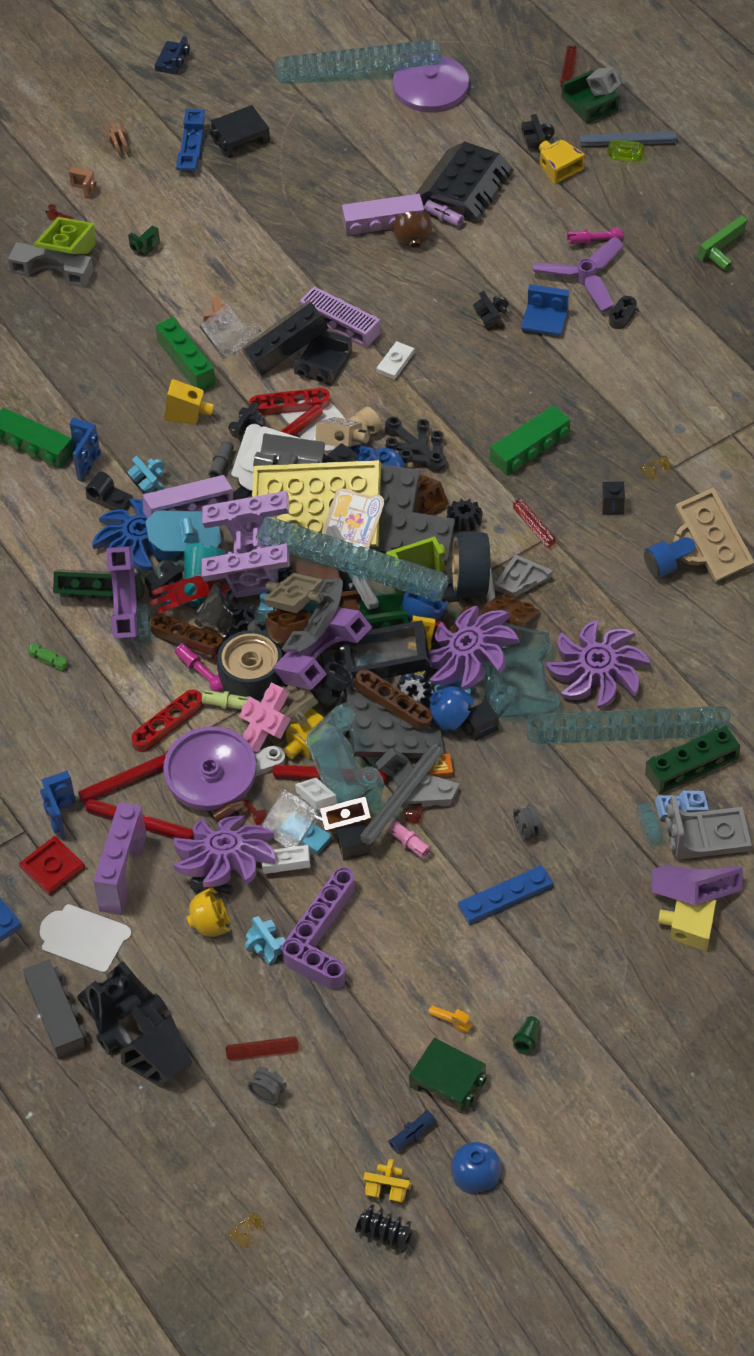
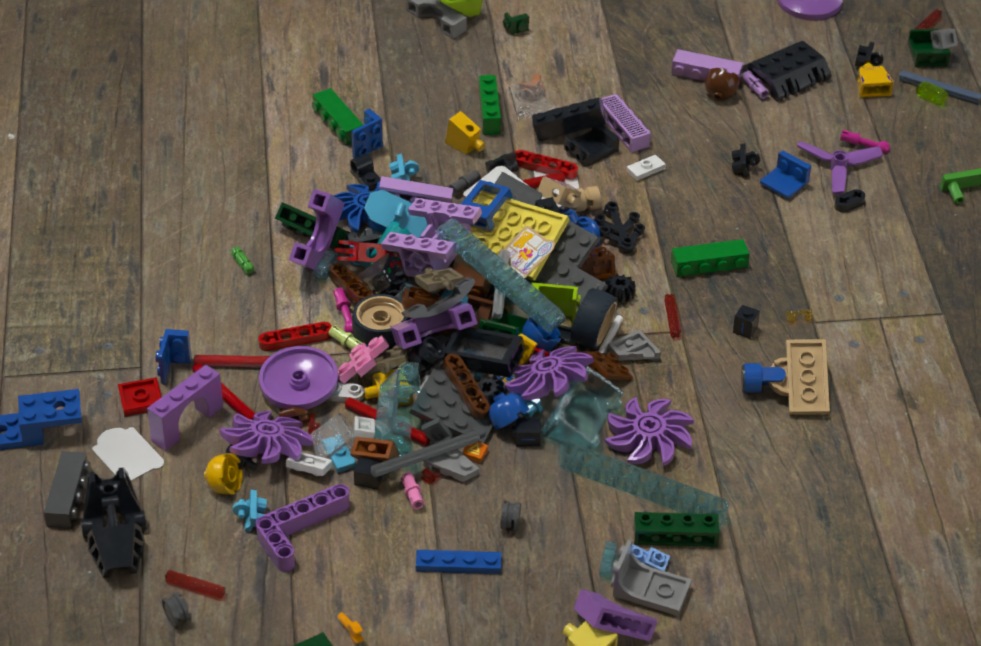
camera: 25 degrees right, 10 degrees down
(290, 459) = (503, 193): none -> blue window

